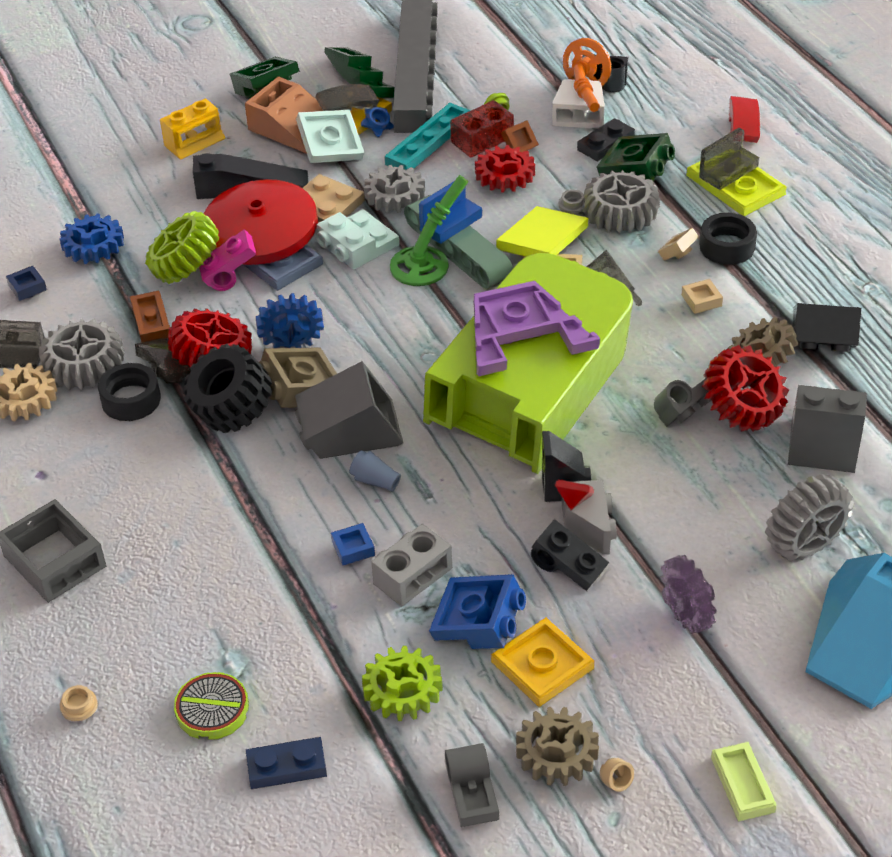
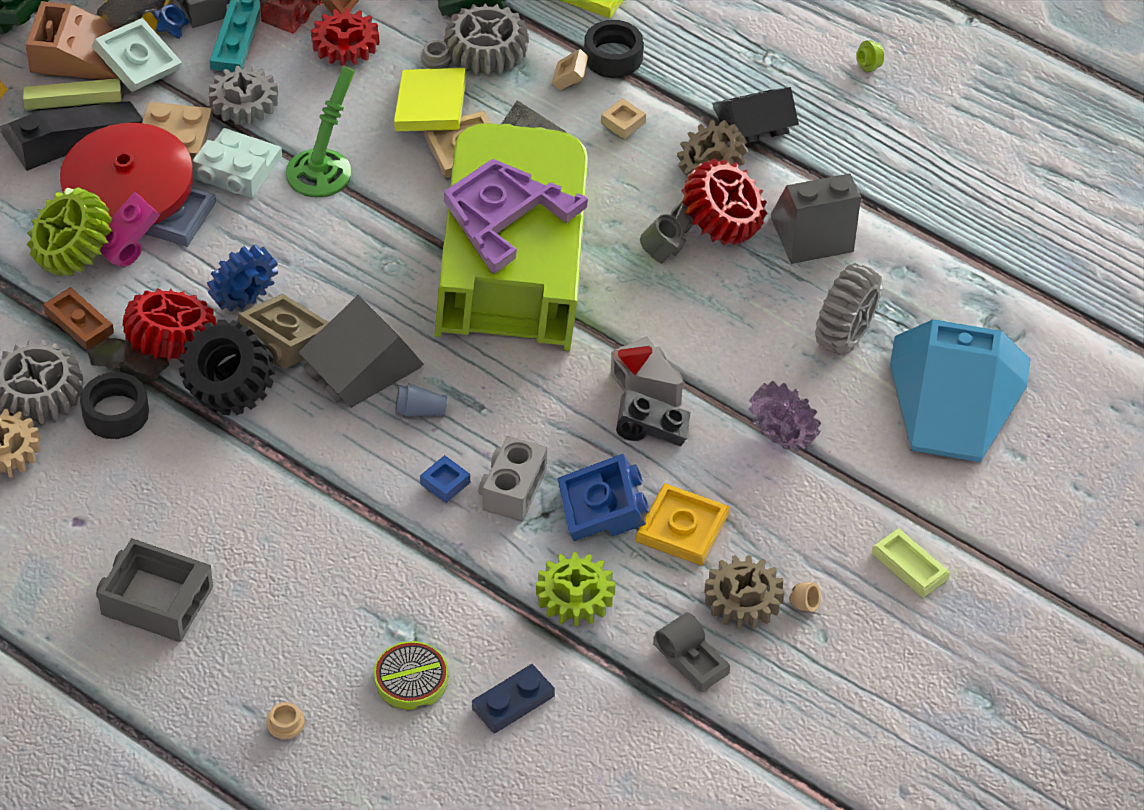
camera: 30 degrees left, 5 degrees up
(266, 152) = (72, 94): none -> yellowish green tile
(461, 215) = (324, 91): blue panel -> none
(468, 251) = (352, 137): sand green beam -> none
(560, 462) = (596, 338): black slope -> none

